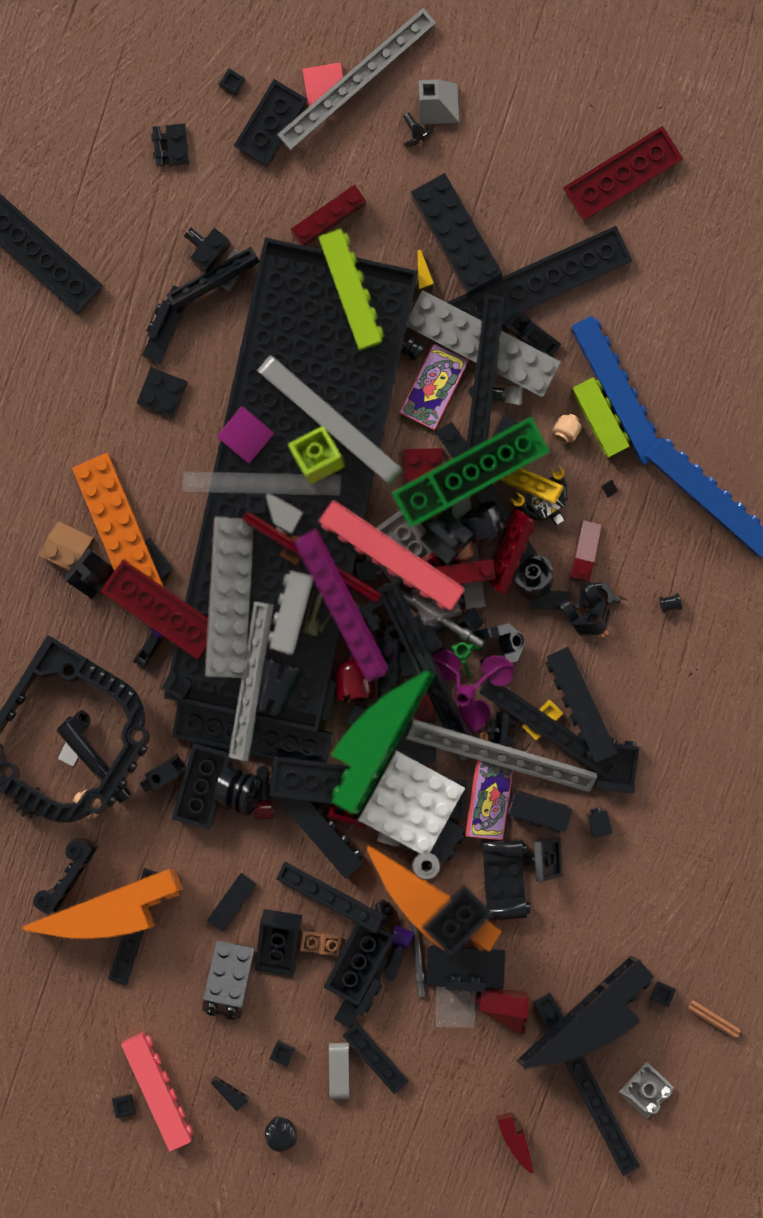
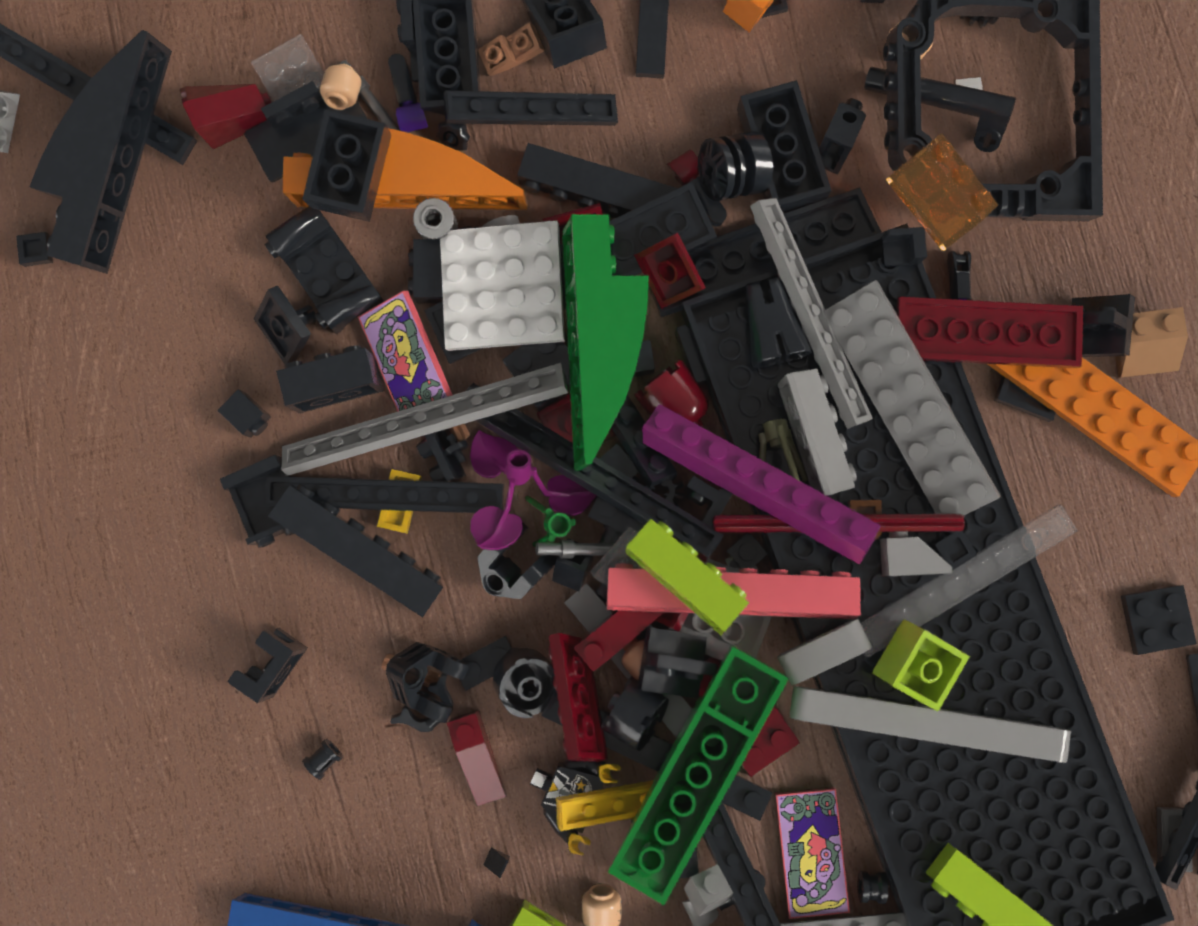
camera: 155 degrees right, 5 degrees down
(139, 702) = (942, 192): none -> clear orange slope
(245, 434) = (1028, 632): magenta slope -> none
(313, 753) = (670, 270): none -> dark red slope
(362, 493) = (824, 651): none -> light grey beam
(412, 580) = (686, 576): none -> lime brick
(431, 978) = (340, 86): none -> light nougat head
(503, 405) = (708, 890): none -> light grey brick
(665, 667) = (265, 684): none -> black panel

